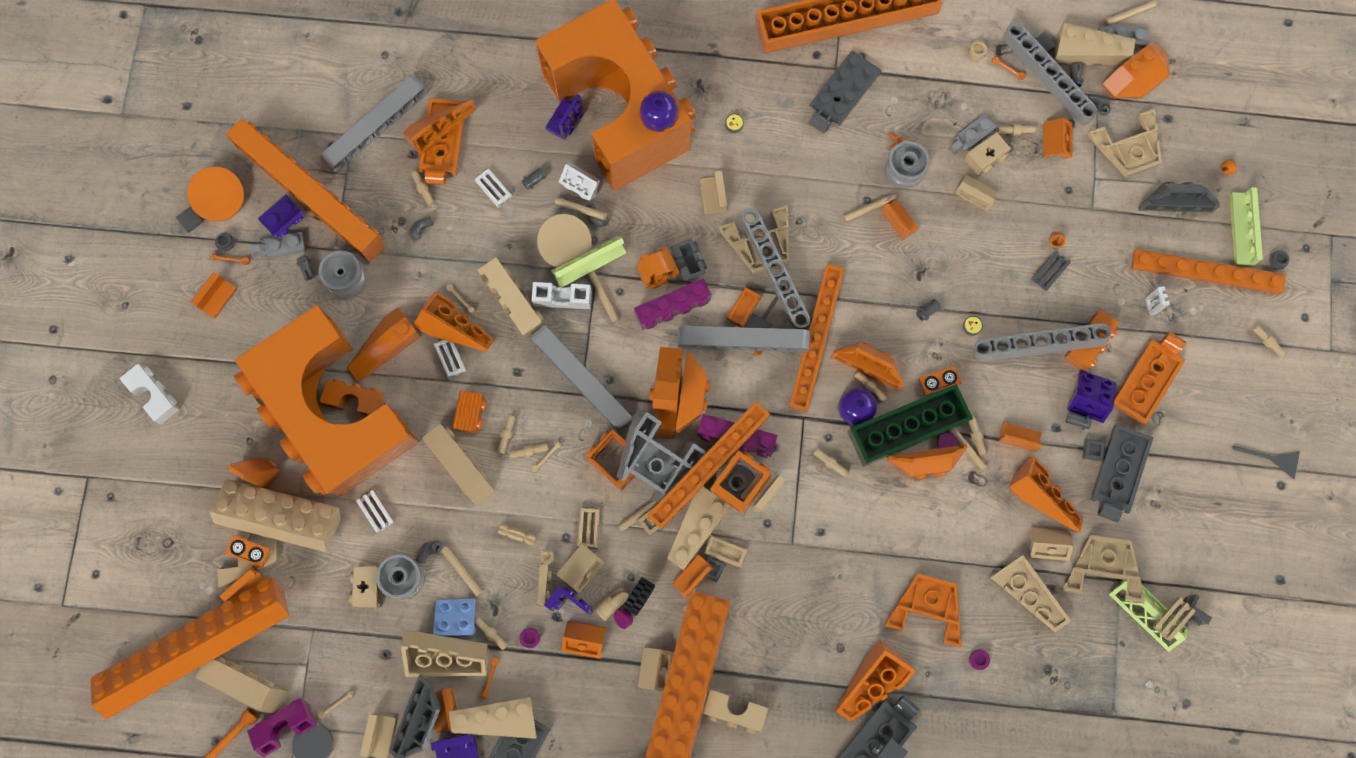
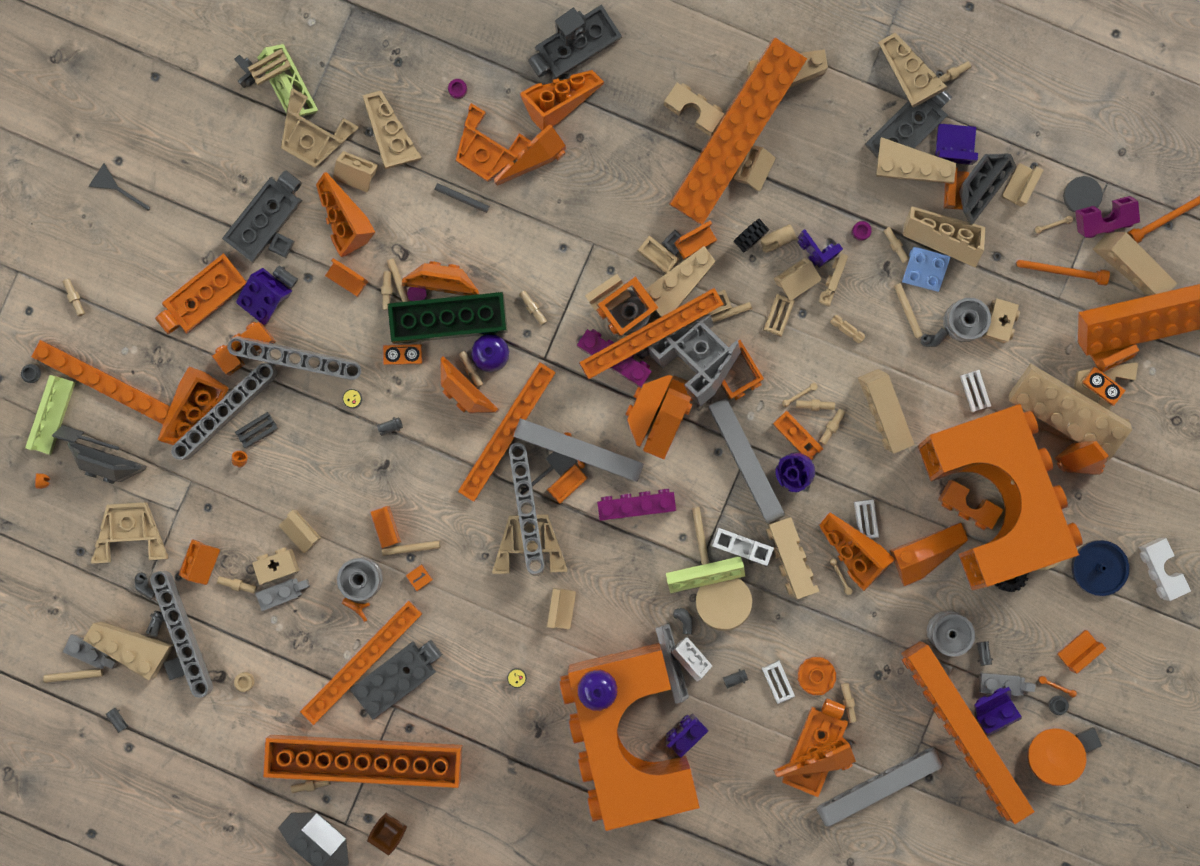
camera: 160 degrees left, 10 degrees up
(211, 378) = (1100, 568): none -> dark blue piece
(274, 663) = (1101, 276): none -> orange piece
(417, 227) = (863, 663): dark grey arm -> none
(459, 203) = (816, 675): none -> orange tile
(469, 412) = (862, 458): orange brick -> none
(495, 661) = (899, 219): orange hinge -> none
(530, 378) = (795, 472): none -> dark purple cylinder
(538, 416) = (797, 435): none -> orange plate
(580, 208) = (697, 631): tan bar -> none
(583, 639) = (812, 214): orange panel -> none
(591, 166) = (672, 664): none -> light grey tile
(623, 618) = (771, 221): magenta tile -> none
(657, 268) = (640, 544): orange brick -> none
(687, 259) = (607, 545): dark grey cylinder -> none
(853, 183) = (419, 577): none -> orange tile
(874, 619) = (543, 150): none -> orange wedge
(879, 96) = (361, 662): none -> orange plate
(936, 550) = (461, 197): none -> dark grey bar
(1021, 75) = (210, 641): orange hinge -> none
(1093, 270) = (215, 413): none -> light grey beam
(1121, 276) = (192, 401): none -> orange wedge
(1139, 73) = (89, 605): orange wedge -> none
(1161, 299) = (165, 365): white tile -> none
(1219, 215) = (72, 435): none -> dark grey piece

